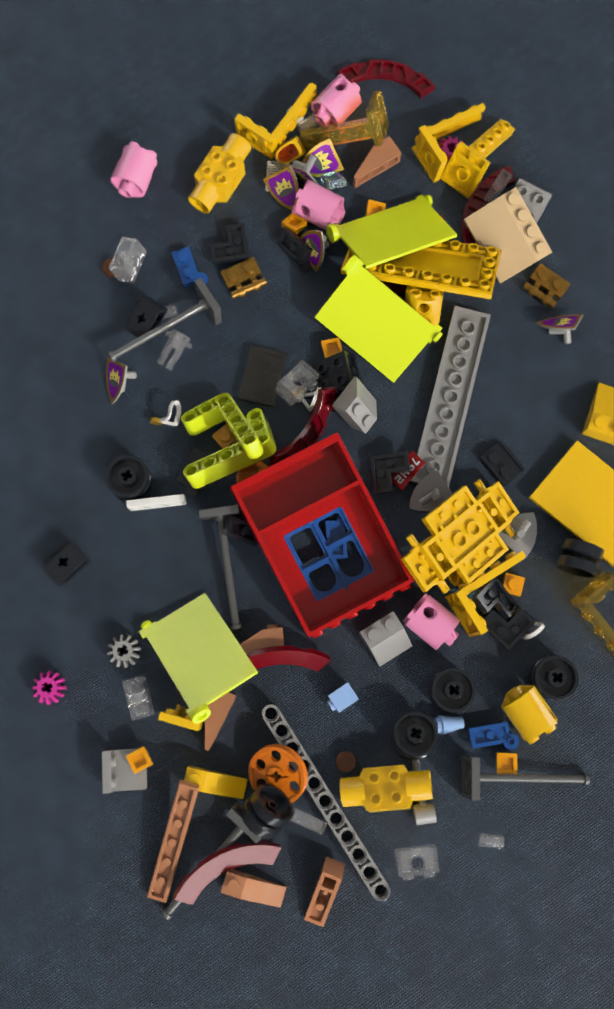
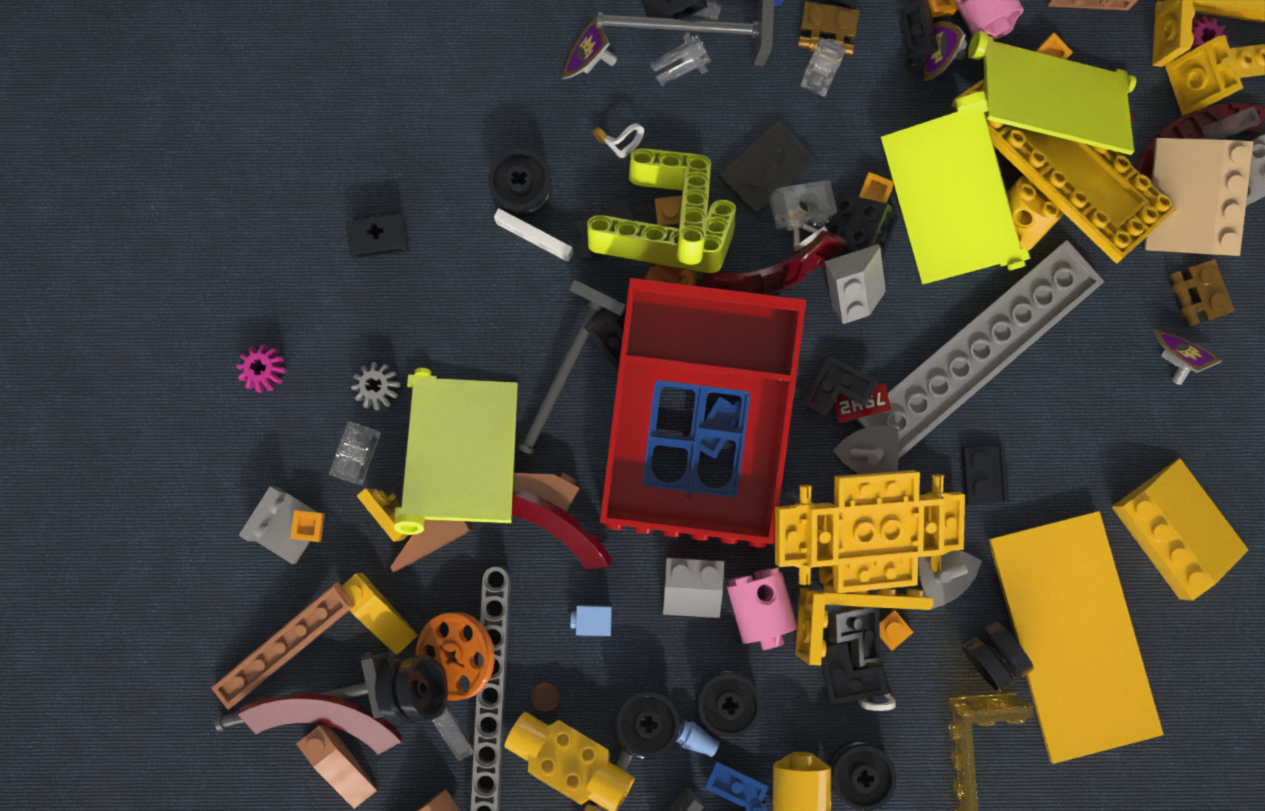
camera: 35 degrees right, 5 degrees up
(255, 300) = (823, 66): none -> clear brick

